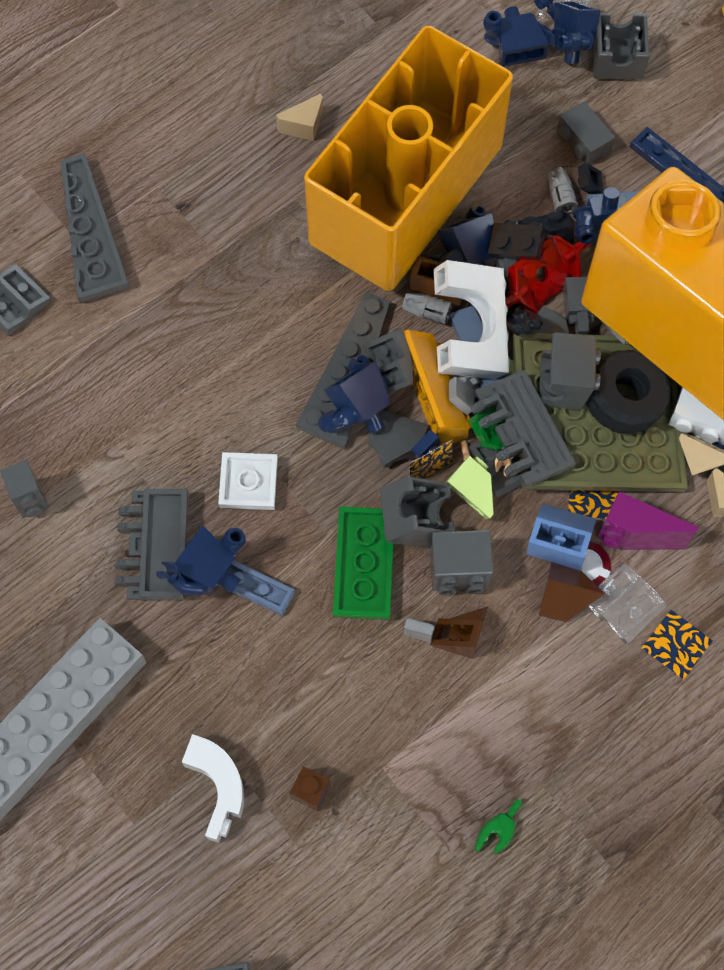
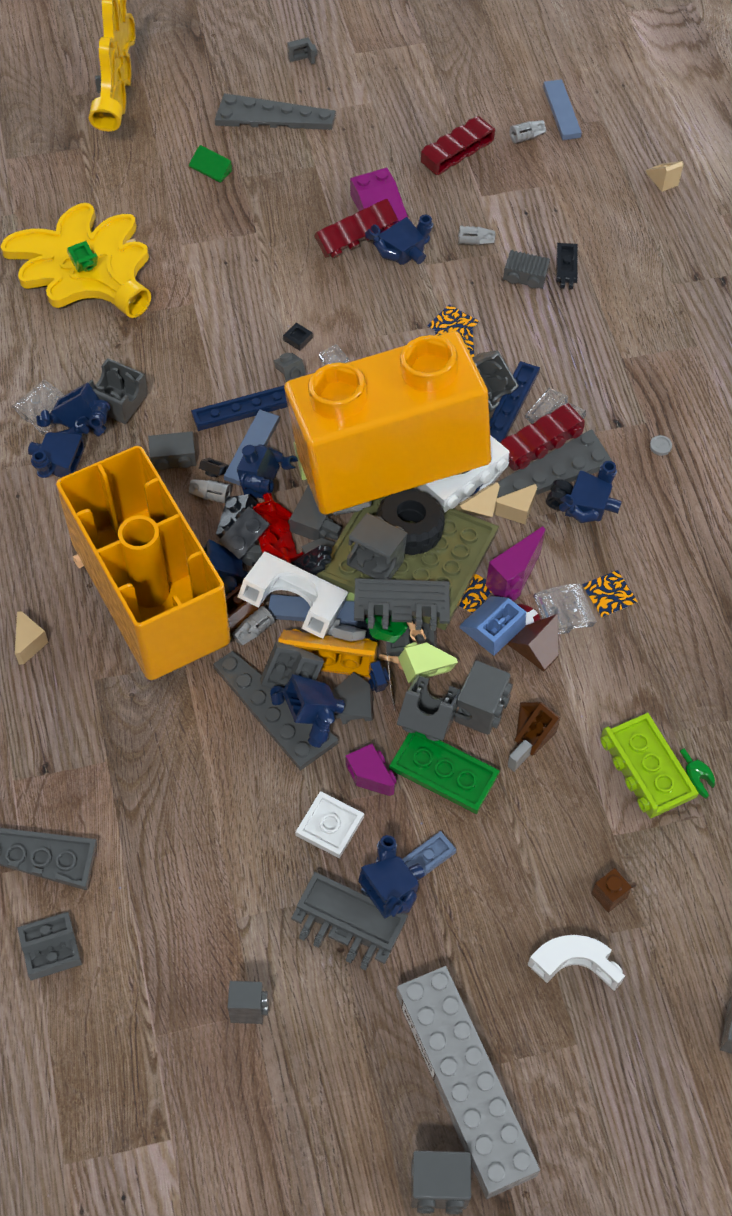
camera: 65 degrees left, 10 degrees down
(325, 488) = (369, 772): none -> magenta slope
(478, 770) = (648, 765): none -> lime bracket

